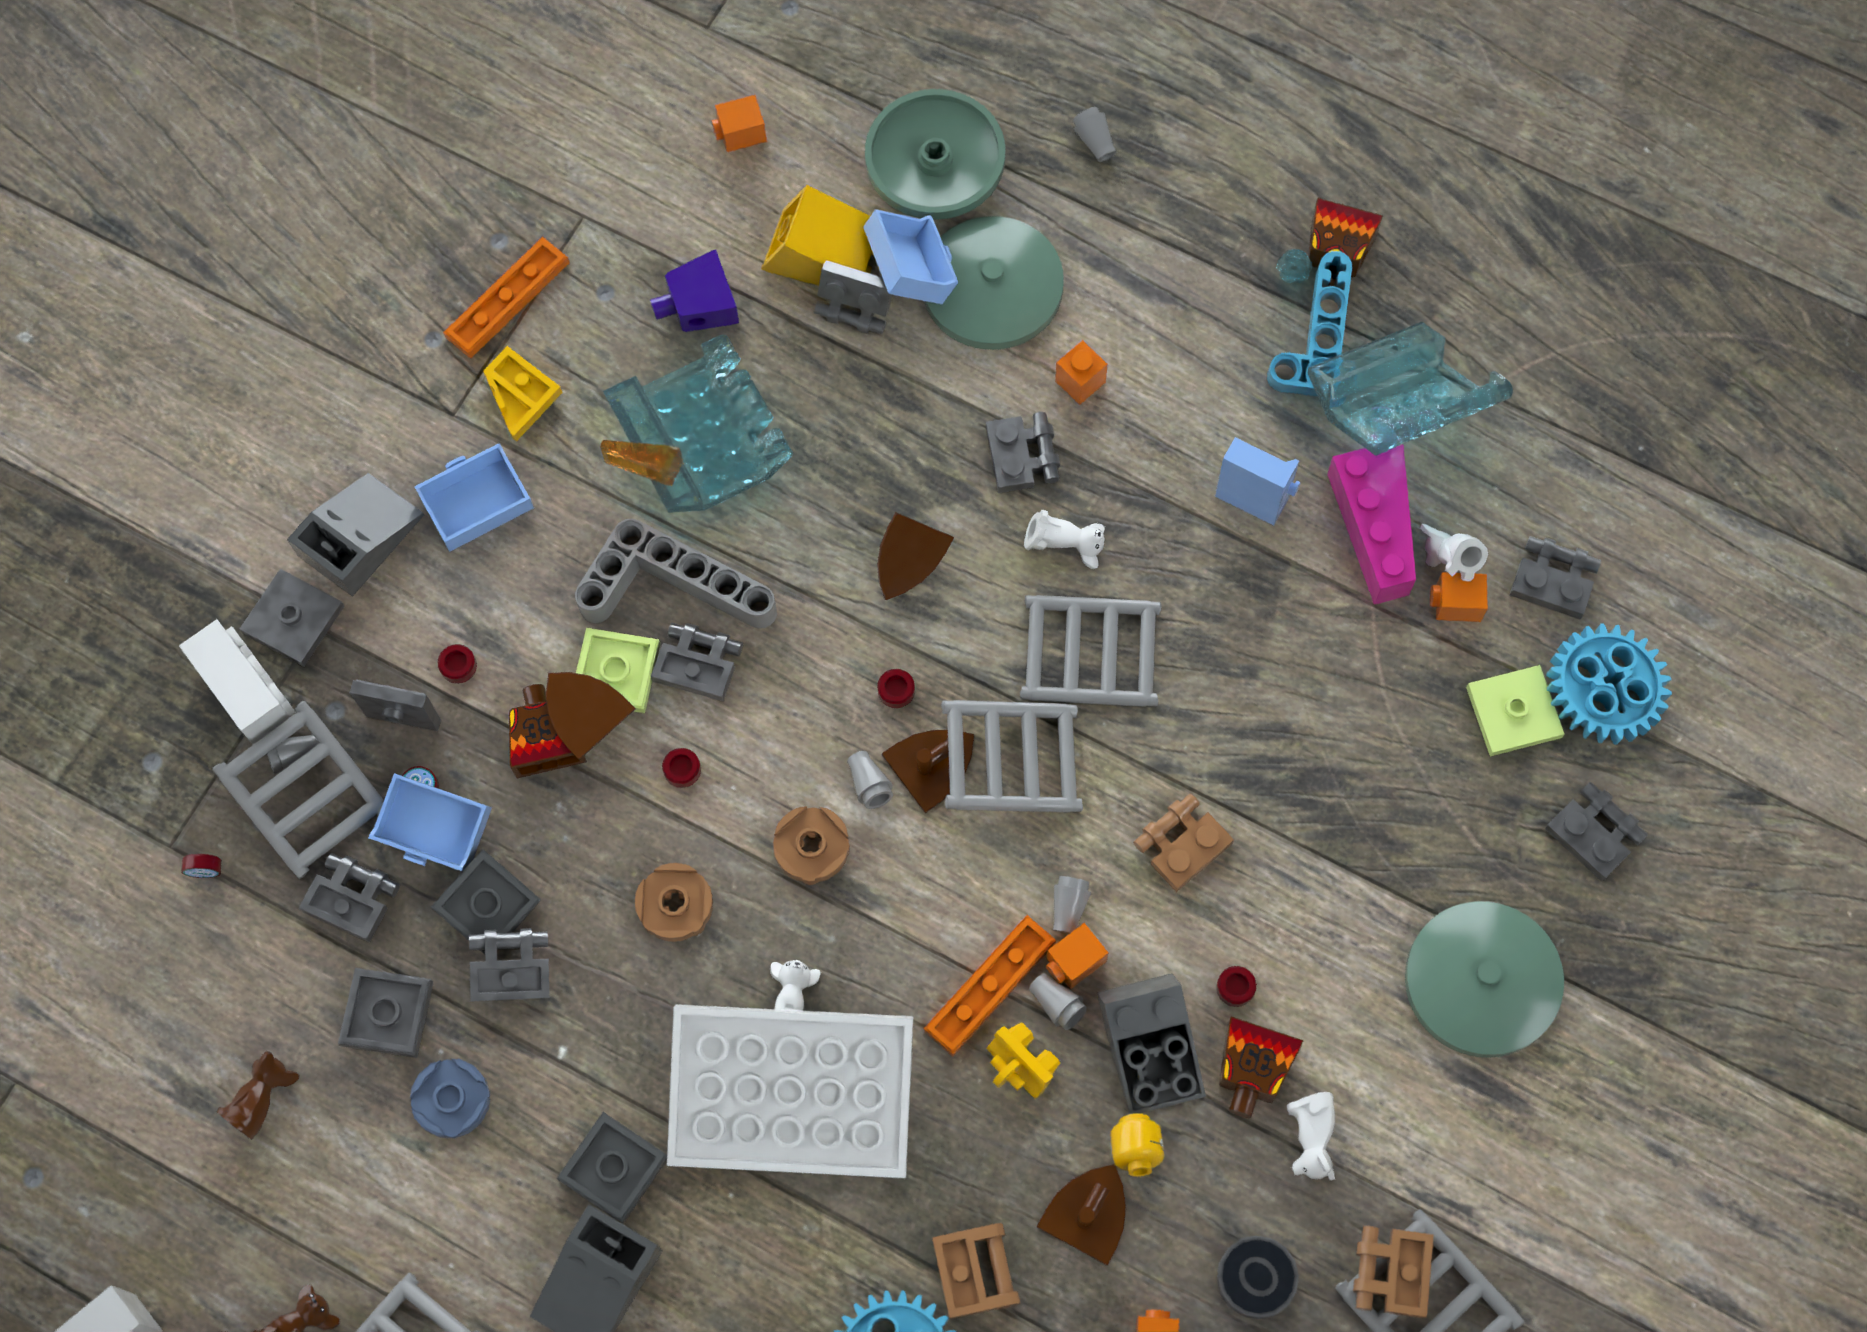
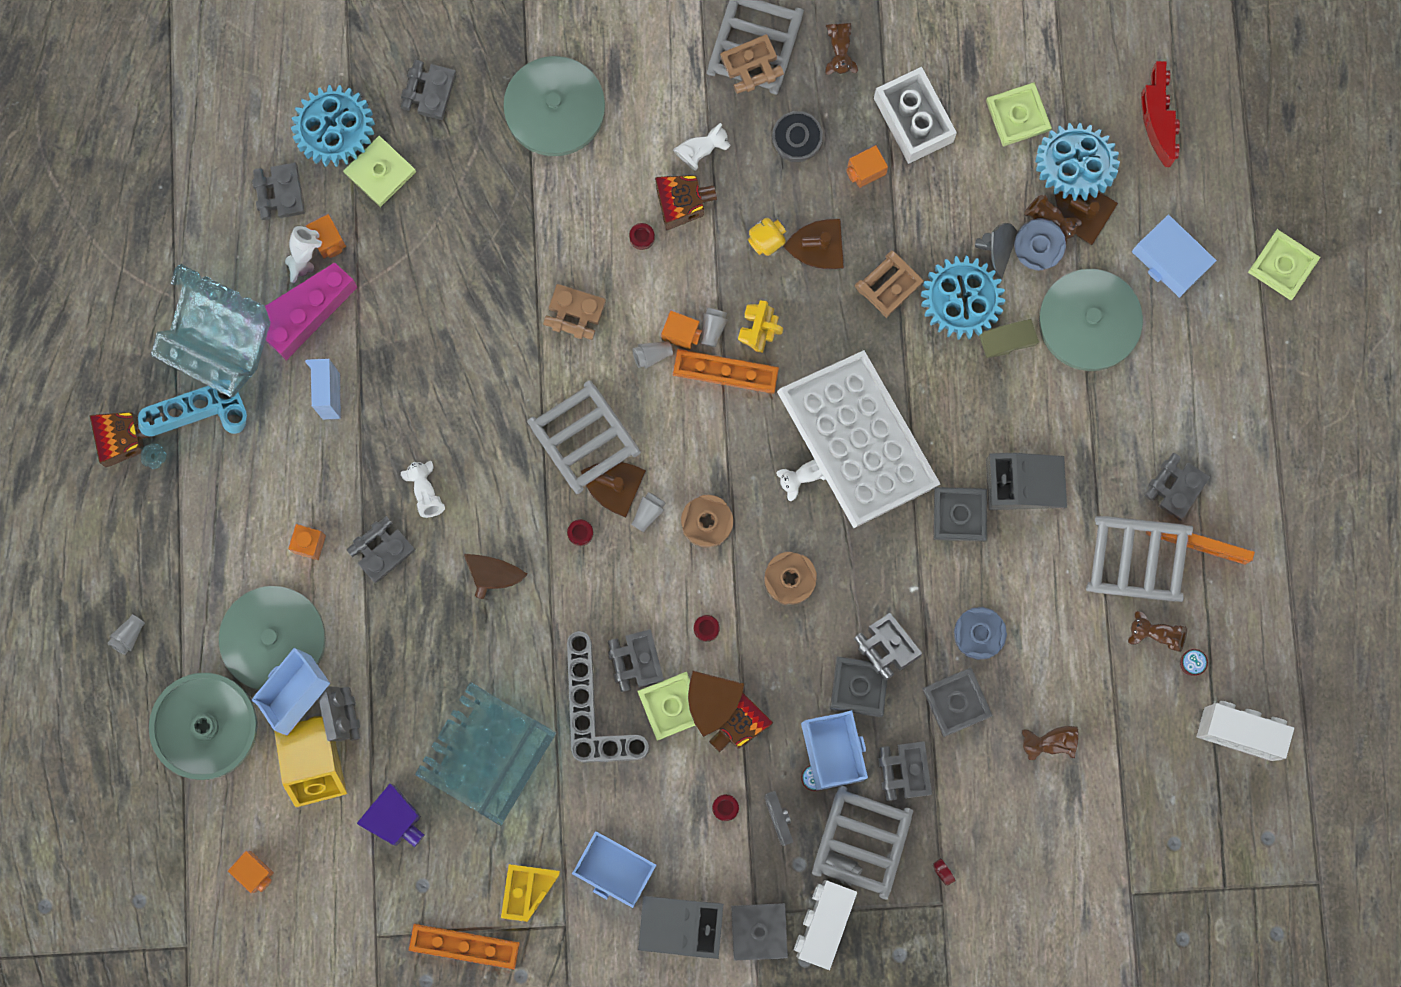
camera: 125 degrees left, 10 degrees up
(647, 460) = (533, 757): clear orange slope -> none
(1070, 692) = (454, 435): light grey bar -> none
(1152, 1043) = (703, 262): dark grey slope -> none

